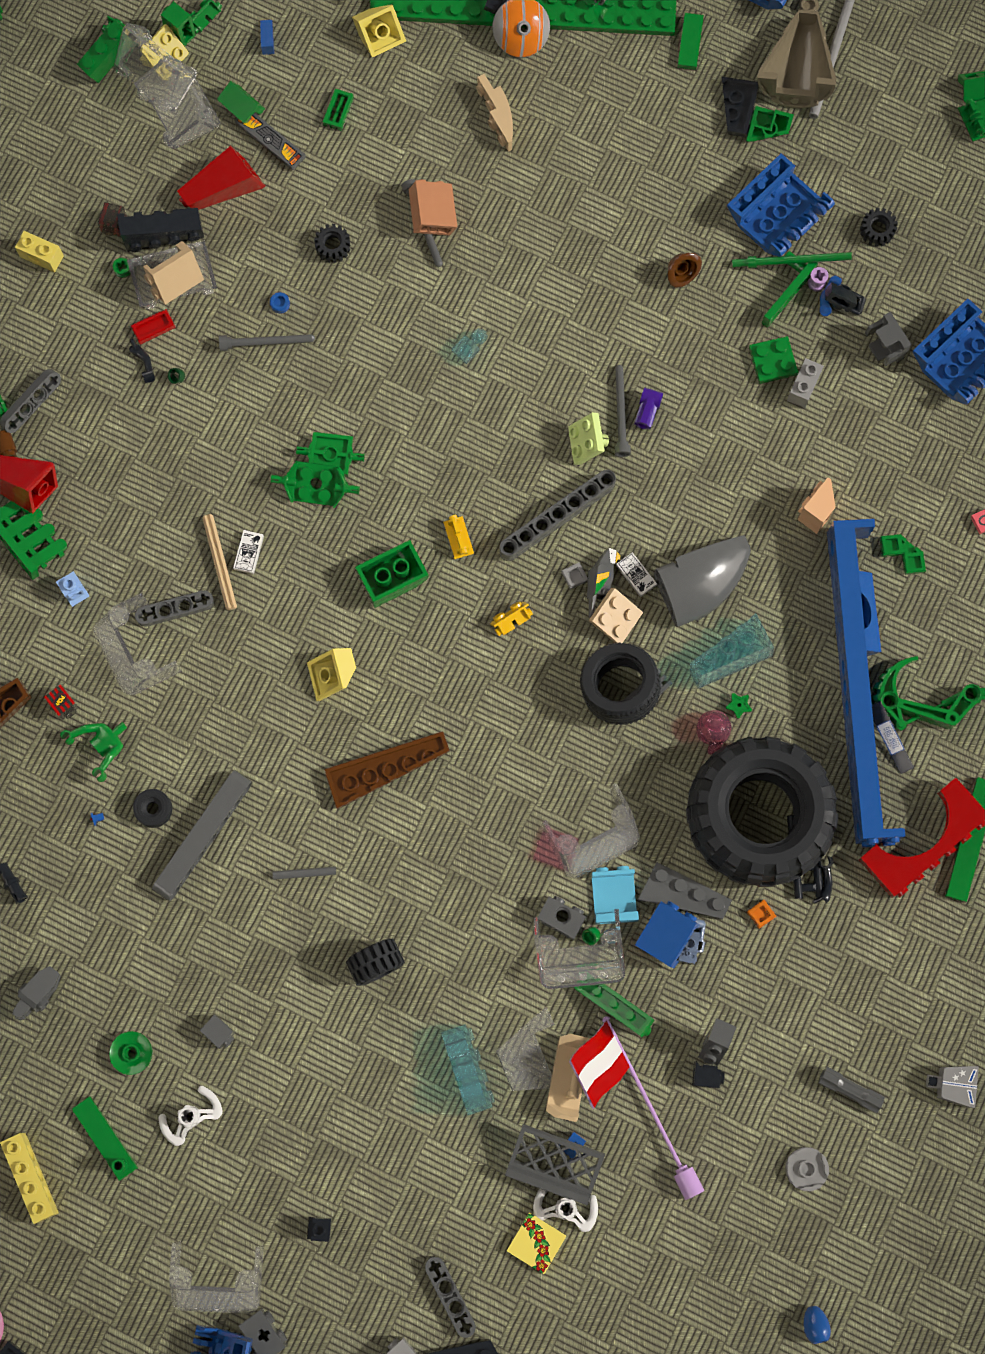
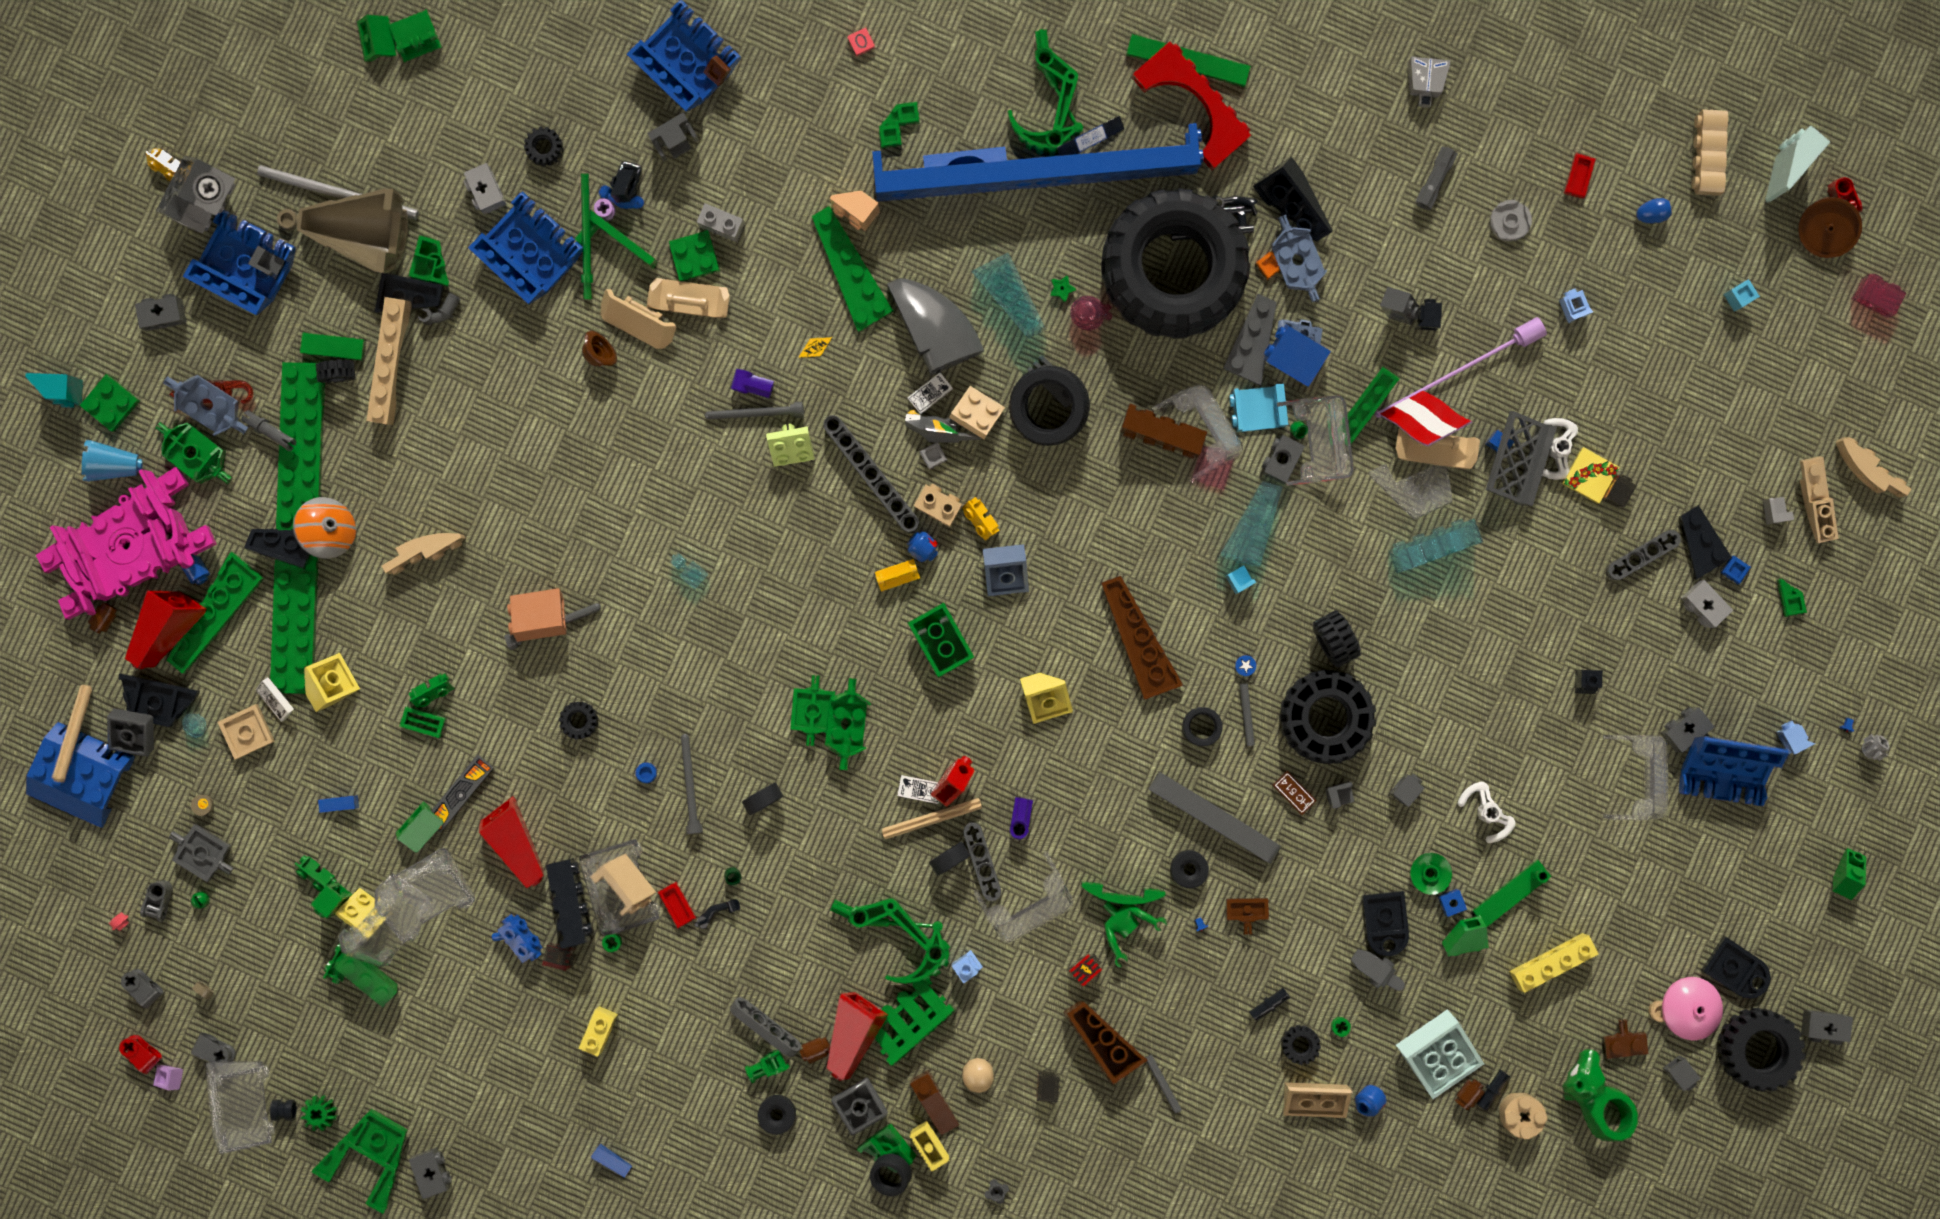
camera: 90 degrees left, 10 degrees up
(62, 1086) = (1466, 937): none -> green slope
(87, 1005) = (1386, 919): none -> black tile
(106, 864) = (1247, 911): none -> reddish brown plate
(107, 1074) = (1445, 899): none -> blue piece
(125, 529) = (874, 917): none -> green piece
(131, 185) = (519, 938): none -> blue brick
(138, 715) = (1148, 894): none -> green slope
(178, 574) = (949, 858): none -> black tyre
(216, 646) = (1021, 815): none -> dark purple piece
(217, 963) = (1339, 794): none -> dark grey panel
(222, 917) = (1294, 792): none -> reddish brown tile
(247, 403) = (762, 799): none -> black tyre
(254, 581) = (956, 775): none -> red torso
(264, 946) = (1358, 723): none -> black tyre
(290, 811) = (1217, 729): none -> black tyre
(353, 873) = (1245, 665): none -> blue tile
(363, 109) = (422, 695): none -> green hinge
(440, 869) = (1240, 579): none -> medium azure panel
(459, 639) = (1006, 570): none -> sand blue slope
(485, 561) = (922, 547): none -> blue head
(488, 882) = (1252, 530): none -> clear light blue wedge
(518, 1272) = (1619, 491): none -> clear smoke brick
(525, 577) = (938, 505): none -> tan brick
(593, 796) = (1162, 431): none -> reddish brown wedge
(666, 39) = (335, 371): none -> black tyre
(683, 469) = (815, 347): none -> yellow sticker
(708, 88) = (383, 389): none -> tan arch
(711, 306) = (637, 320): none -> tan piece
(716, 1233) = (1575, 305): none -> light blue window
(719, 135) = (444, 313): none -> dark grey piece
(732, 352) = (688, 298): none -> tan piece
(744, 509) = (857, 285): none -> green wing
(784, 938) = (1298, 242): none -> sand blue plate
(835, 937) = (1292, 195): none -> black wedge
(838, 173) = (480, 177): none -> light grey brick
(854, 1246) = (1579, 175): none -> red tile
(953, 381) = (717, 70): none -> reddish brown plate

